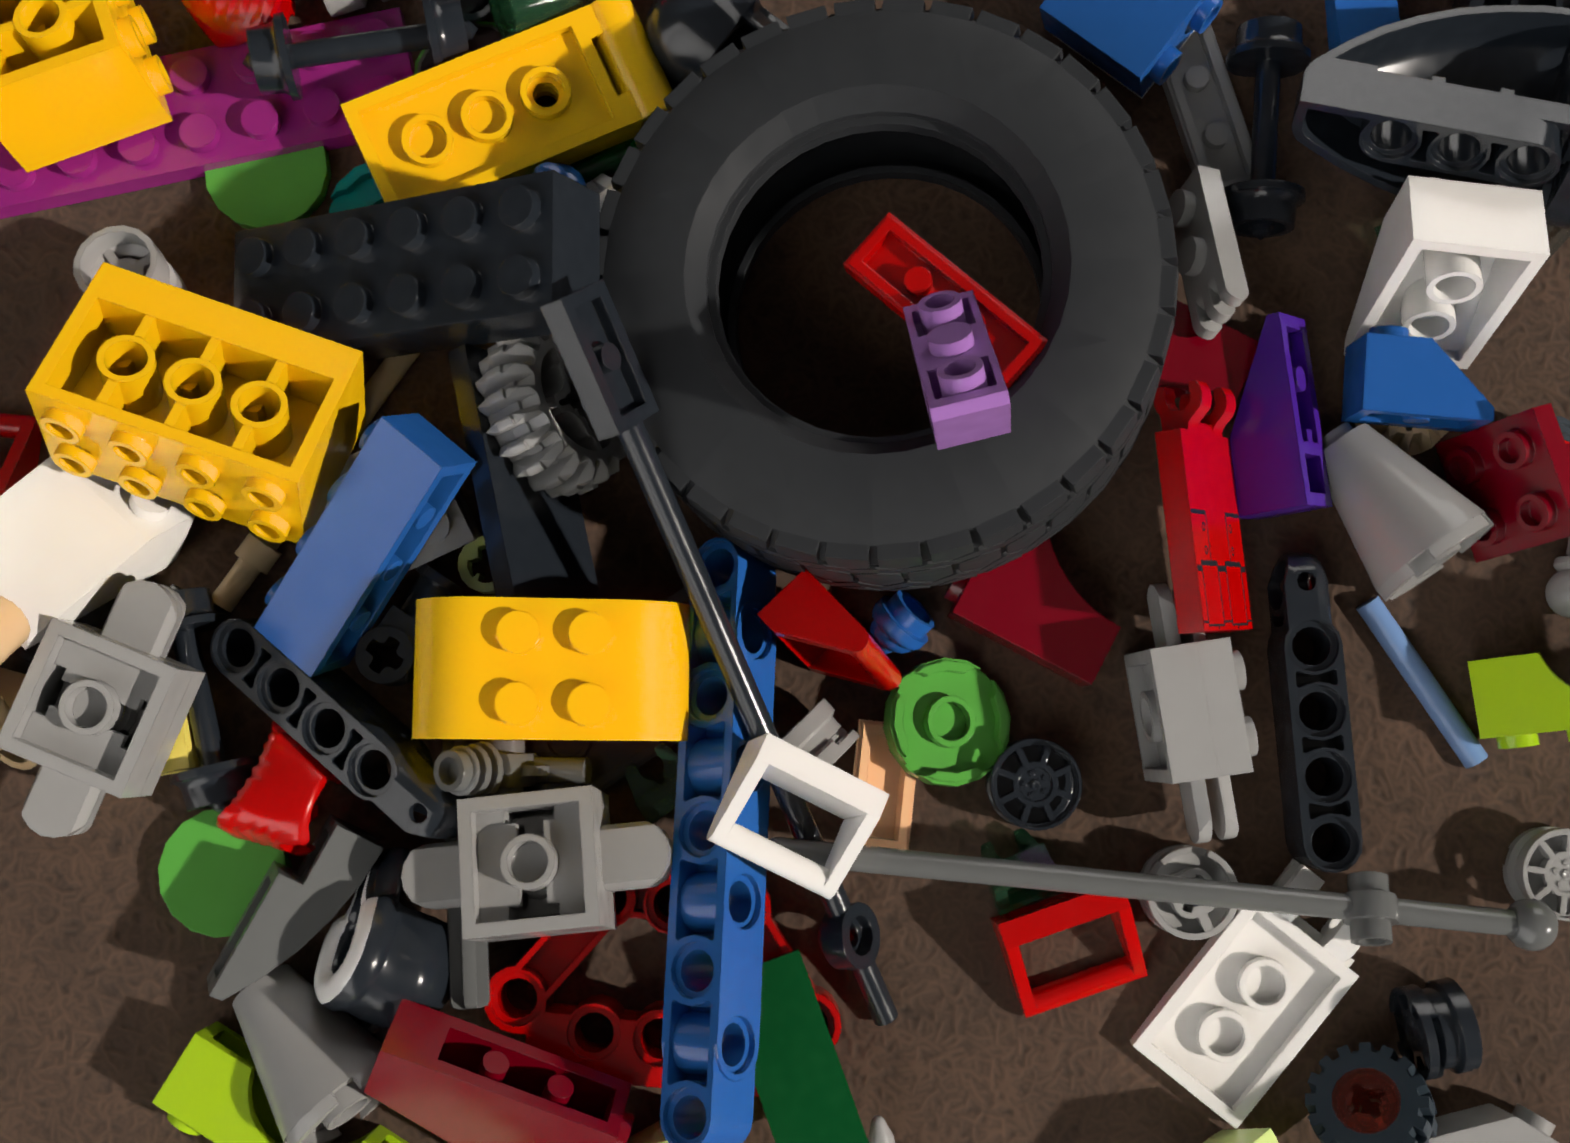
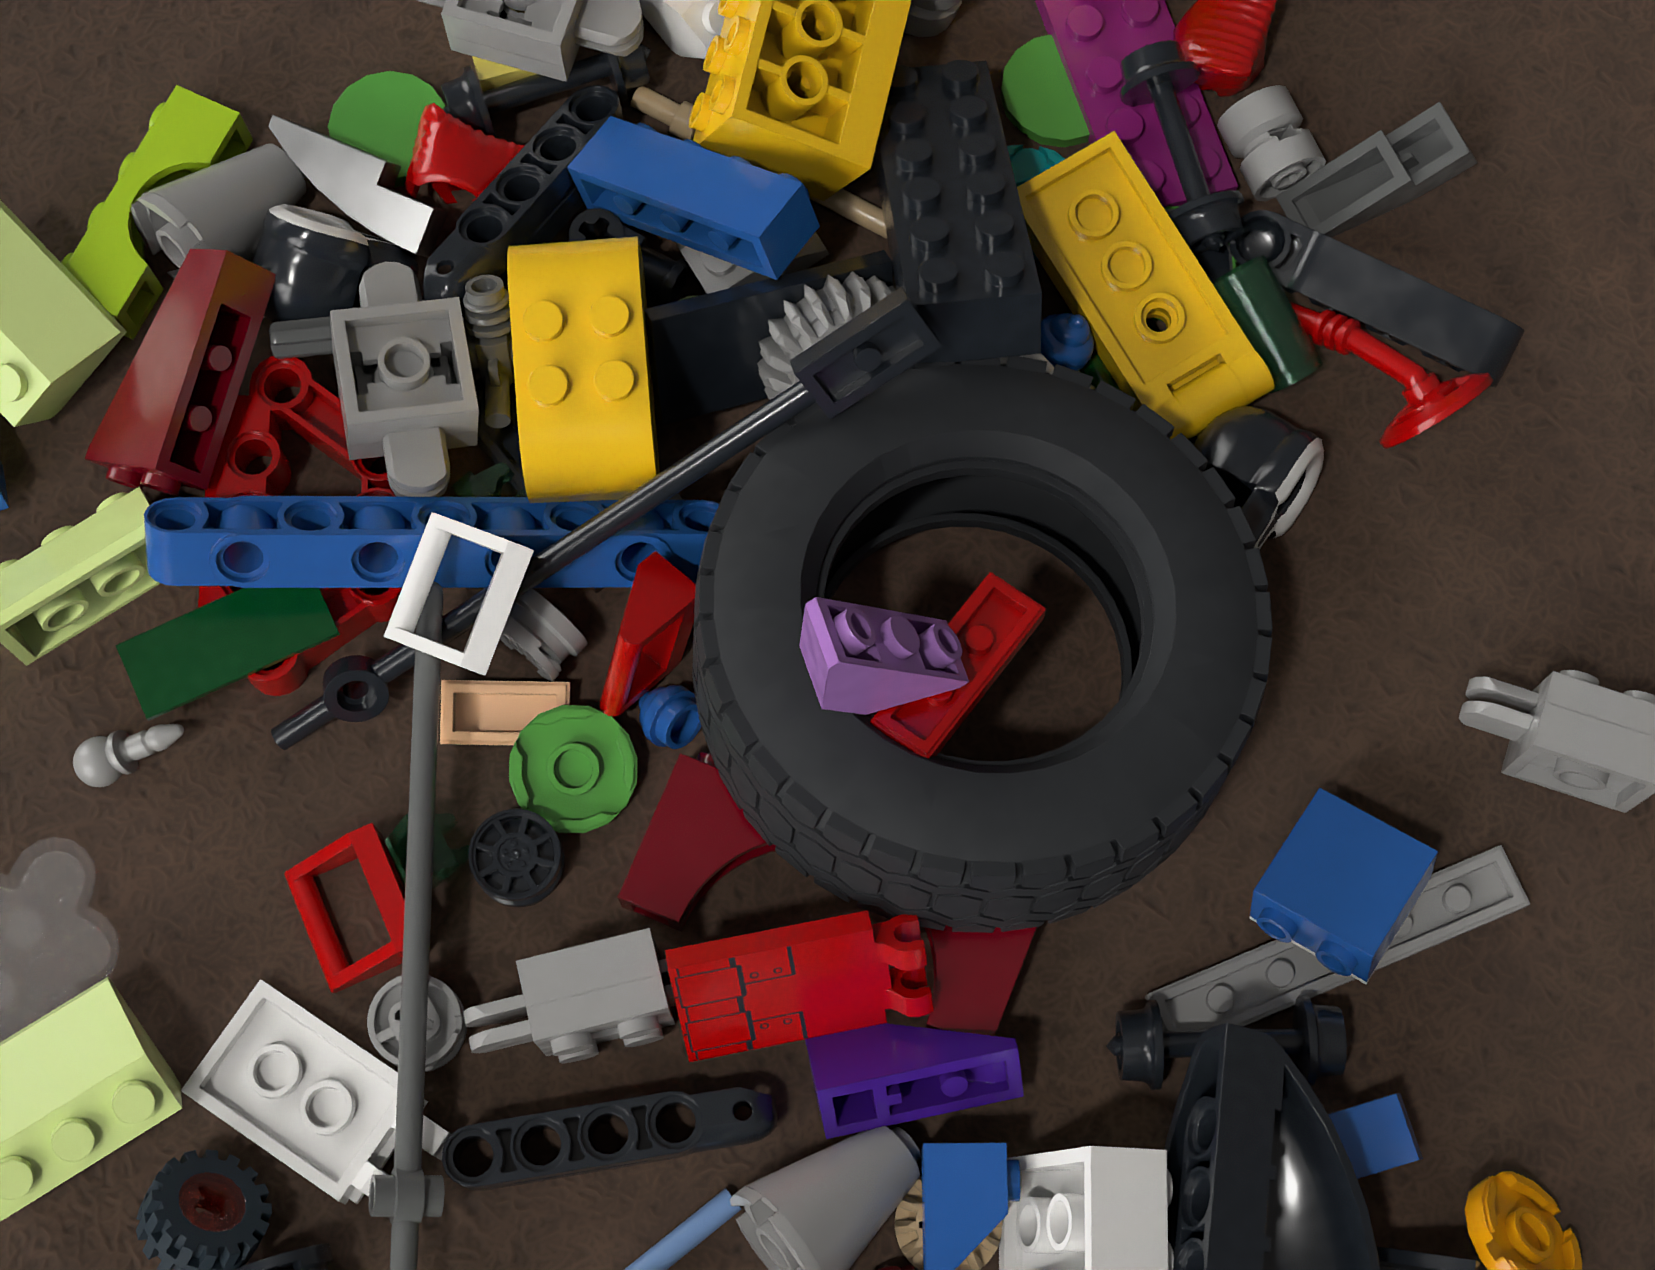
camera: 85 degrees right, 10 degrees down
(1207, 251) = (1076, 977): light grey hinge -> none

